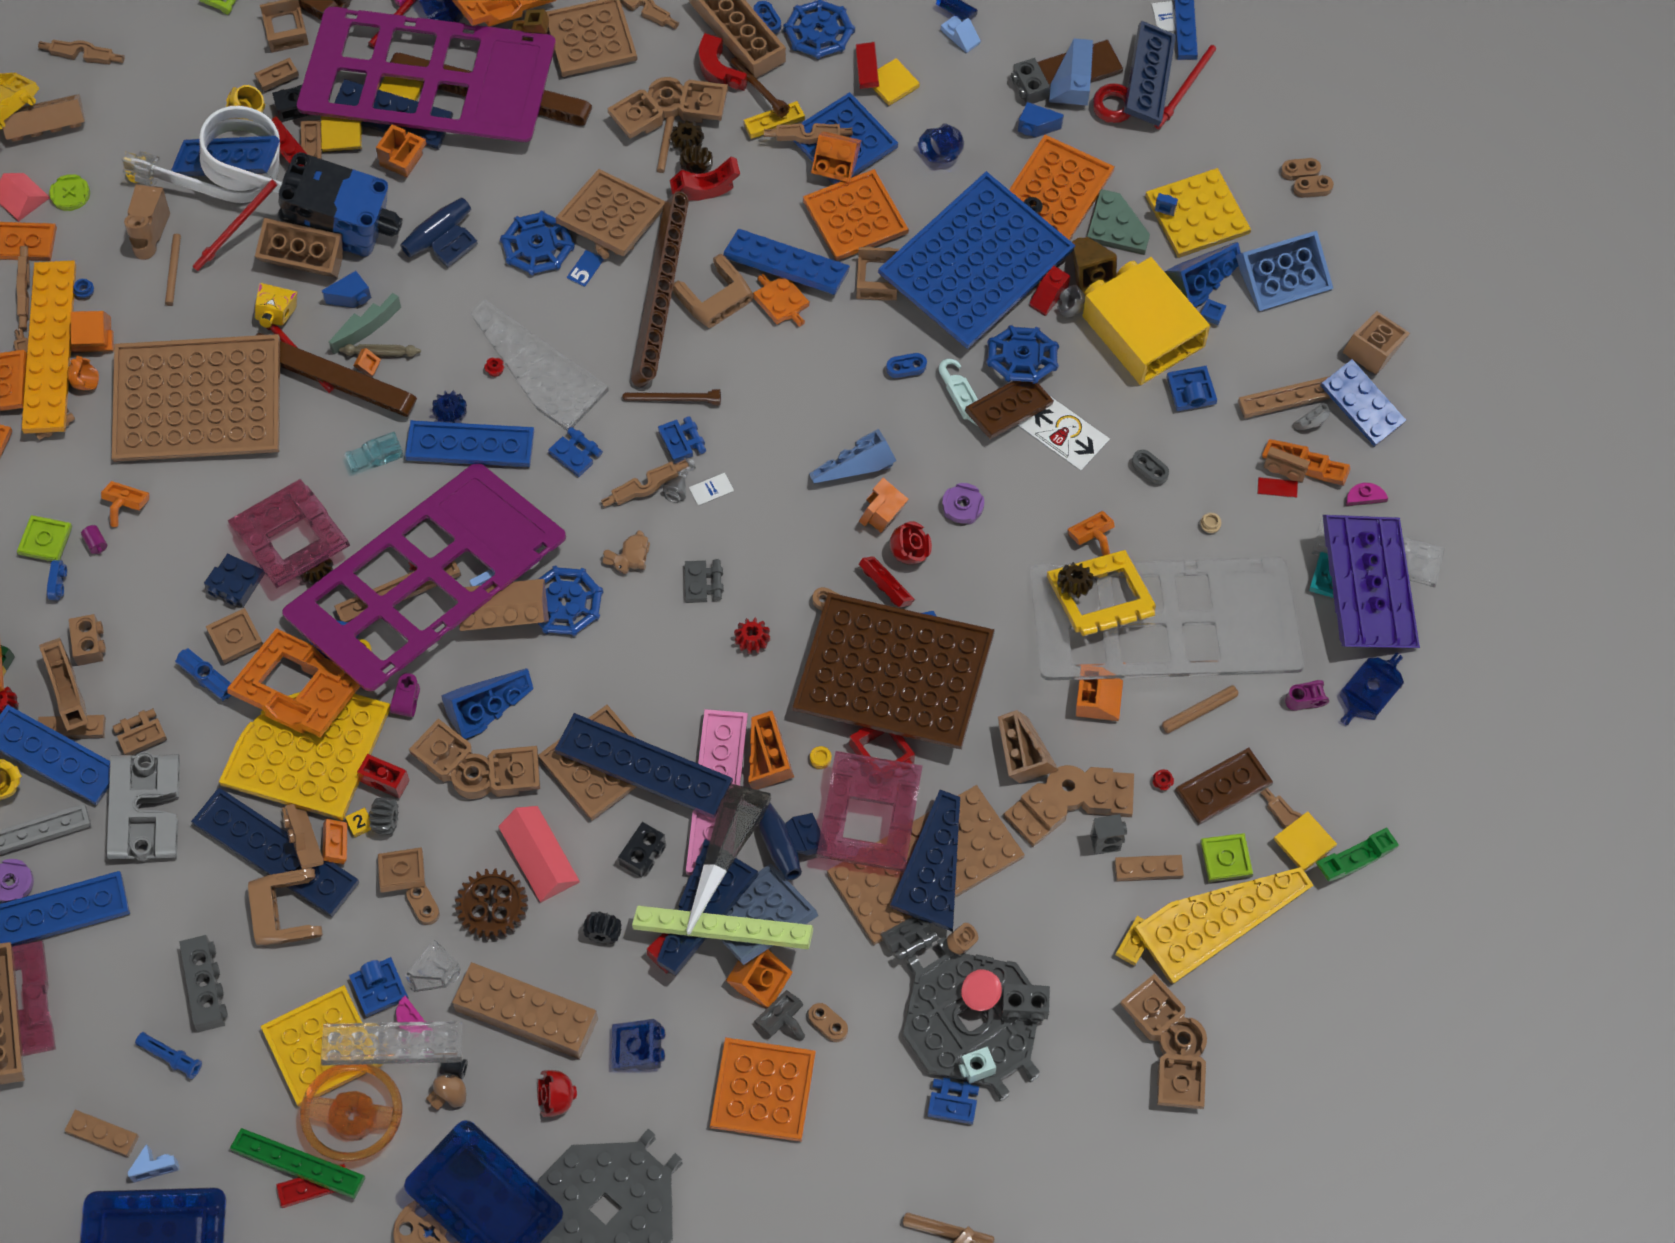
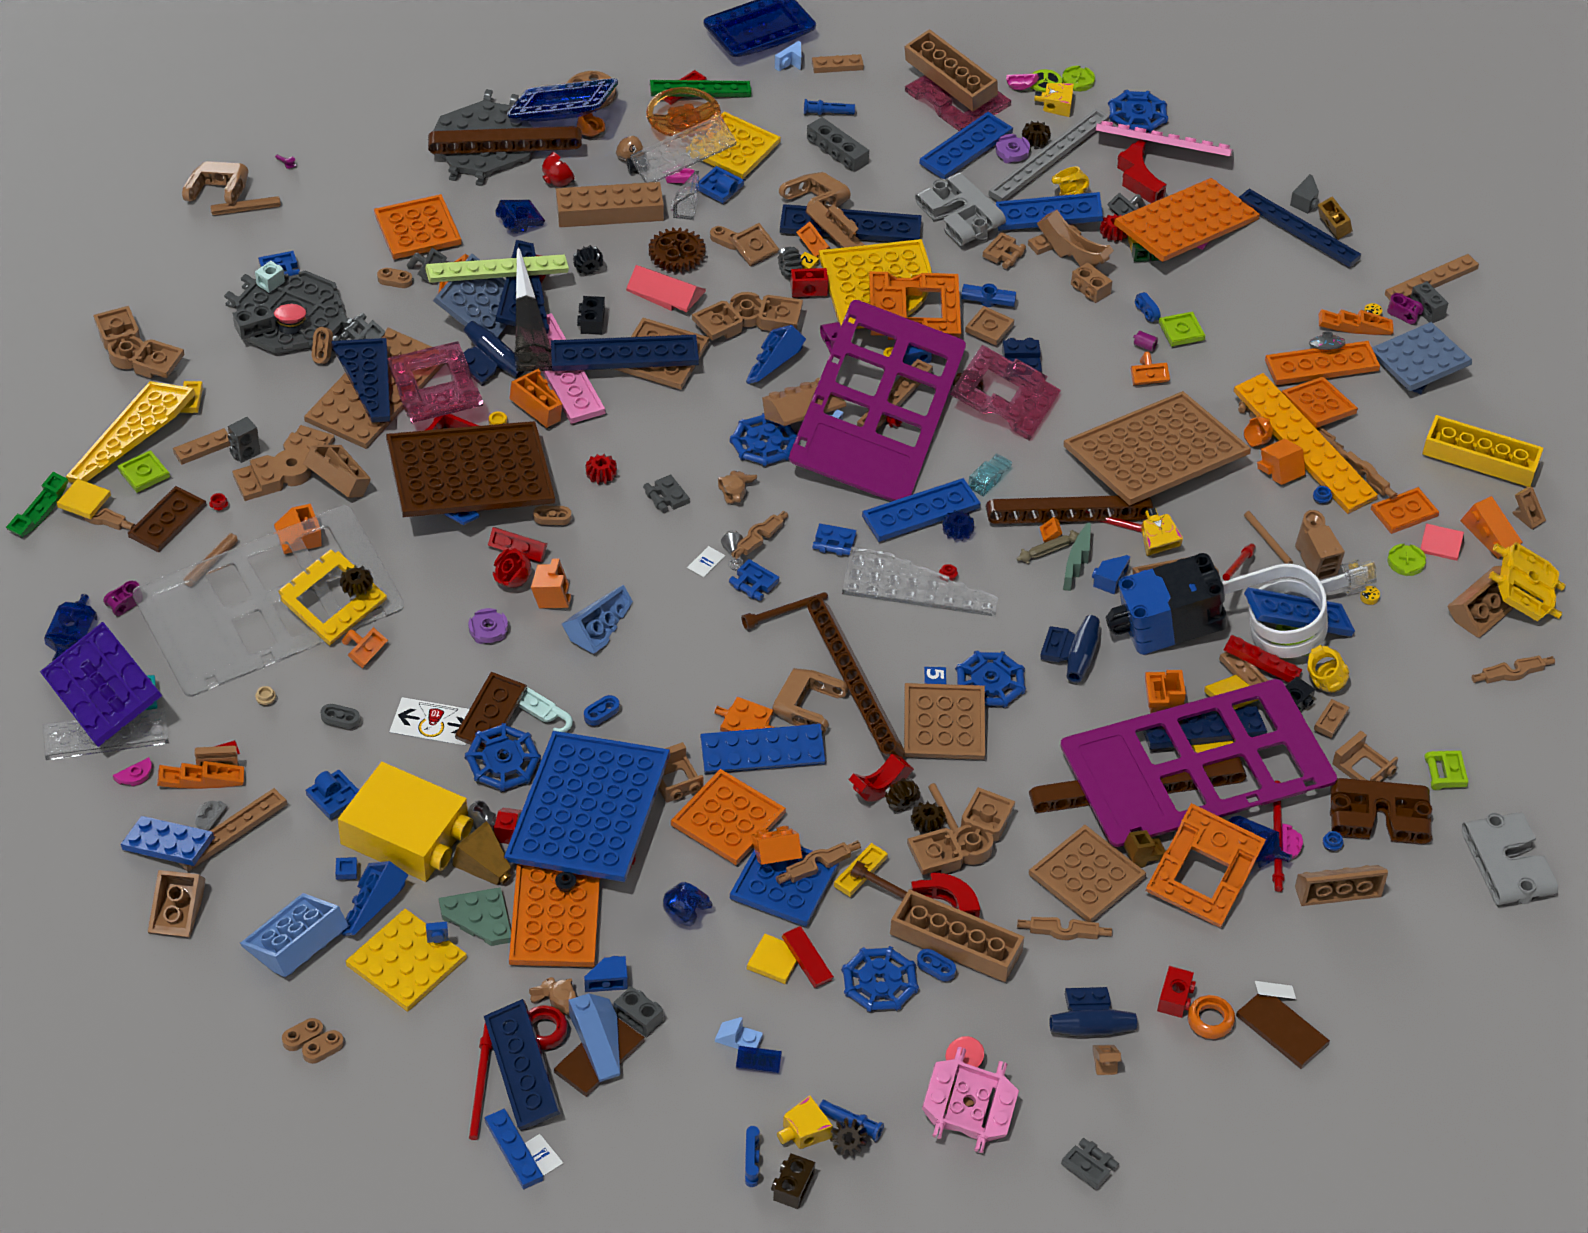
camera: 150 degrees right, 15 degrees down
(592, 1167) = (504, 140): none -> reddish brown beam
(1086, 124) = (558, 993): none -> medium nougat animal

